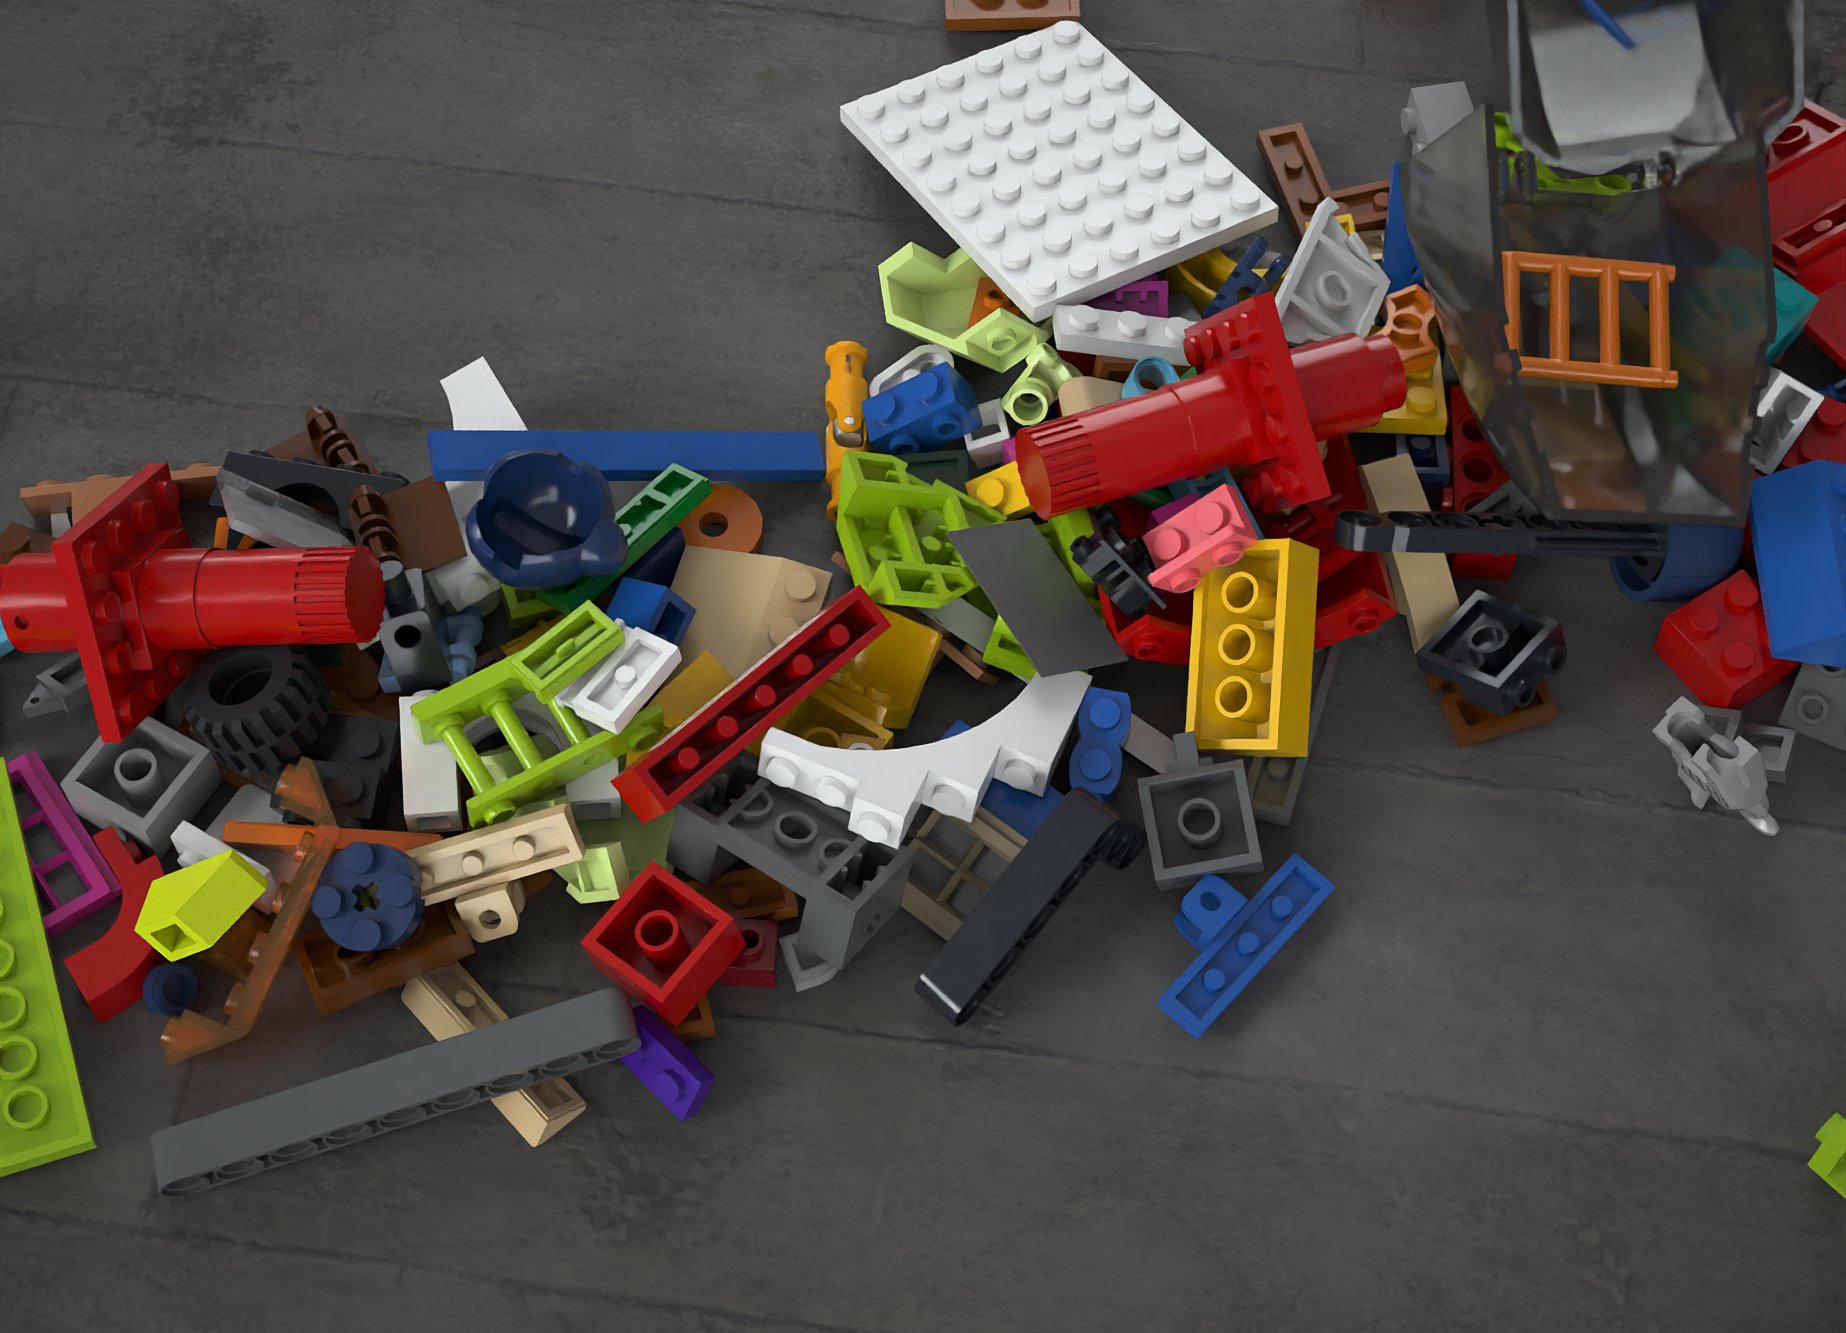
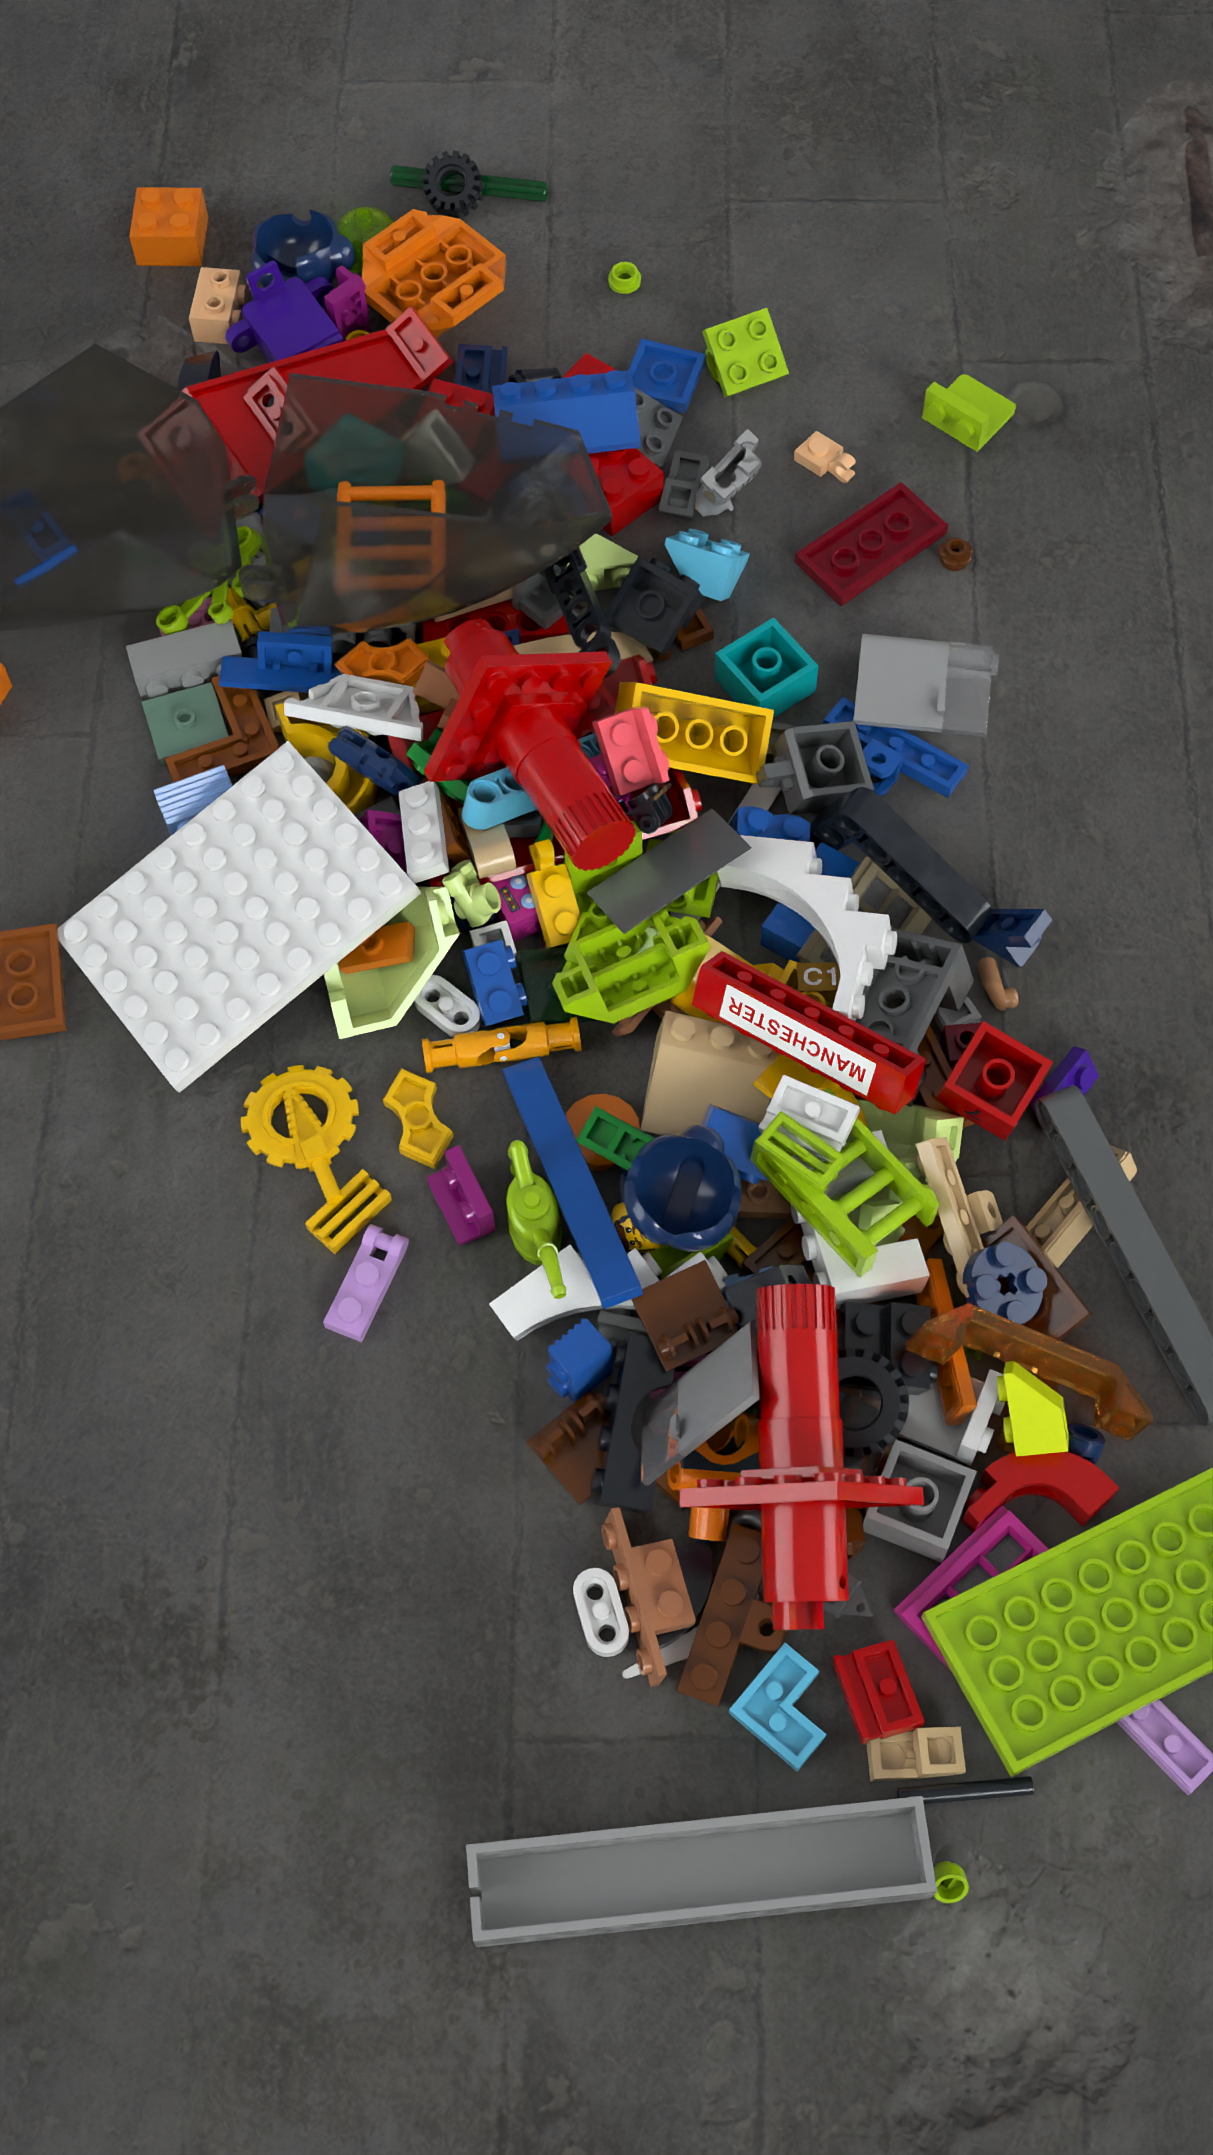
camera: 95 degrees left, 5 degrees up
(119, 455) = (601, 1613): none -> white plate
(399, 440) = (579, 1361): none -> blue brick
(570, 283) = (365, 1284): none -> lavender plate
(588, 411) = (534, 1218): none -> lime piece
(648, 373) = (461, 1199): none -> magenta bracket
(672, 257) = (362, 1219): none -> yellow tile
(748, 351) = (423, 1134): none -> yellow tile
(761, 241) = (309, 1140): none -> yellow bar
(838, 1005) = (992, 983): none -> medium nougat arm
(914, 1044) = (1014, 933): none -> dark blue slope
(1240, 140) = (188, 797): none -> light blue brick
(1348, 994) = (924, 685): none -> light grey door
(1357, 147) = (184, 720): none -> sand green plate
(1379, 786) = (766, 669): none -> teal brick
(1585, 743) = (707, 562): none -> medium azure slope
(1589, 604) = (606, 562): none -> yellowish green slope
(1599, 1106) = (955, 560): none -> reddish brown plate
(1620, 975) = (871, 544): none -> dark red plate
(1794, 936) = (823, 455): none -> light nougat plate

